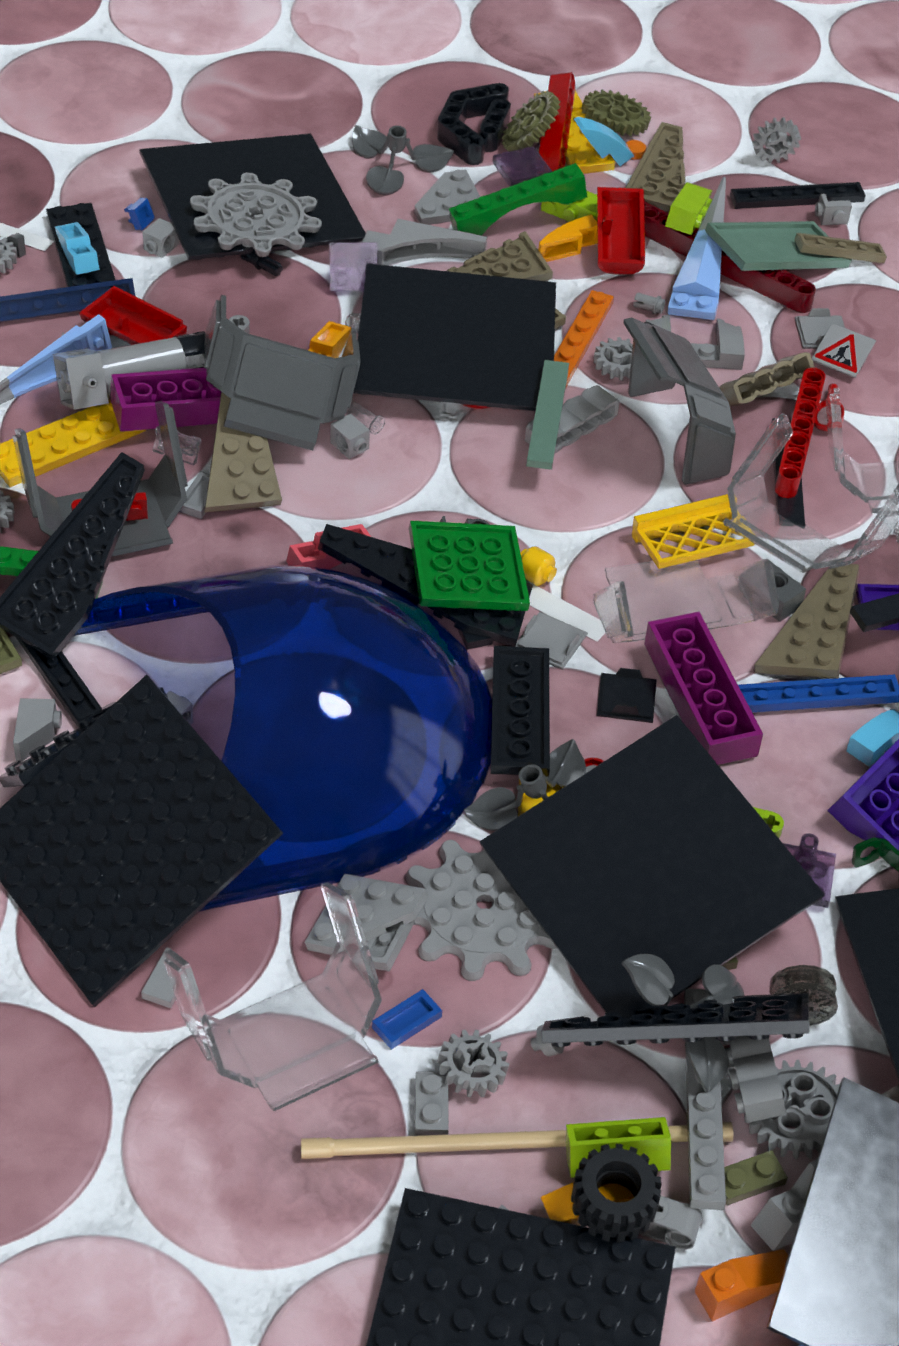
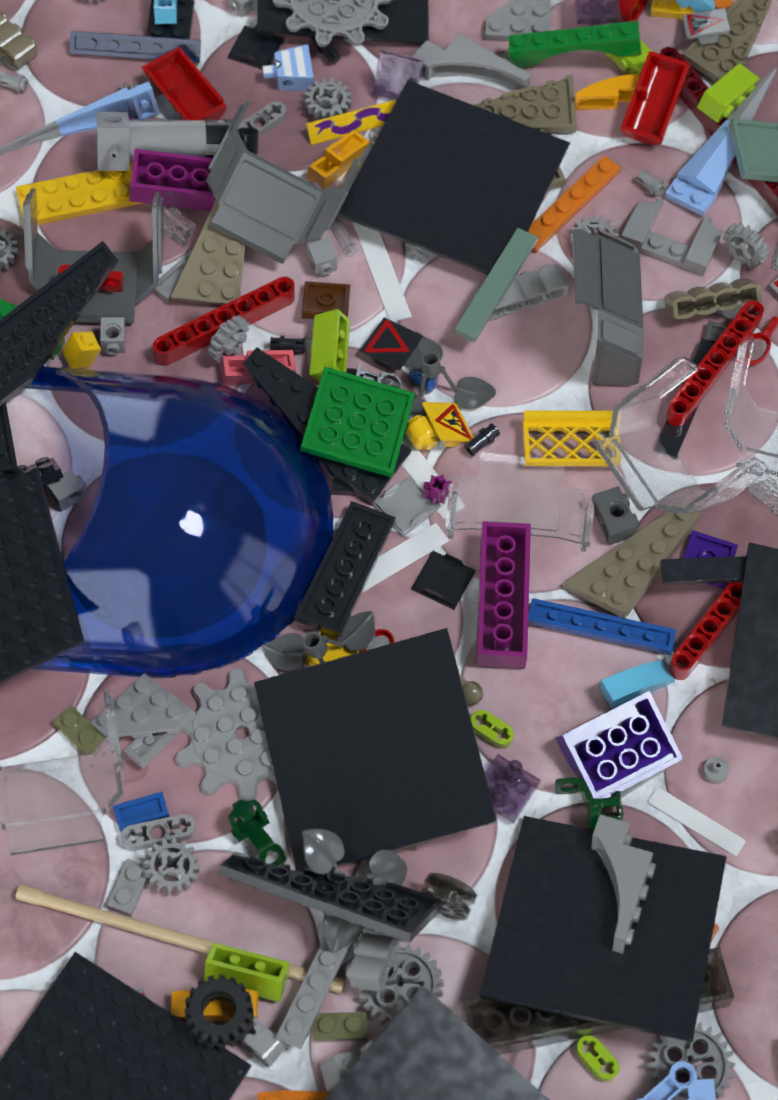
camera: 20 degrees right, 15 degrees up
(128, 573) = (81, 349): none -> yellow brick
(156, 558) = (113, 327): none -> light grey brick
(189, 278) = (255, 48): none -> black piece
(240, 285) = (291, 69): none -> light blue torso
(273, 517) = (212, 320): none -> red beam
(289, 526) = (228, 338): none -> light grey gear
(290, 301) = (327, 99): none -> light grey gear
(294, 955) = (79, 730): none -> olive plate
(314, 320) = (342, 124): none -> yellow sticker
(346, 520) = (283, 343): none -> black pin
(374, 474) = (324, 297): none -> reddish brown plate
(397, 507) = (329, 343): none -> lime brick
(415, 436) = (383, 273): none -> white sticker
(432, 1047) = (150, 825): none -> light grey beam
(463, 496) = (391, 344): none -> black piece
(496, 498) = (471, 391): none -> dark grey plant
(515, 519) = (416, 378): none -> blue piece
(541, 991) = (250, 826): none -> dark green piece
(560, 550) = (448, 423): none -> yellow piece
(576, 681) = (406, 553): none -> white sticker
(580, 612) = (437, 489): none -> magenta gear
(602, 555) = (485, 437): none -> black pin
(636, 165) = (706, 25): none -> light grey piece
(774, 327) = (745, 245): none -> light grey gear
(777, 408) = (714, 331): none -> dark grey tile

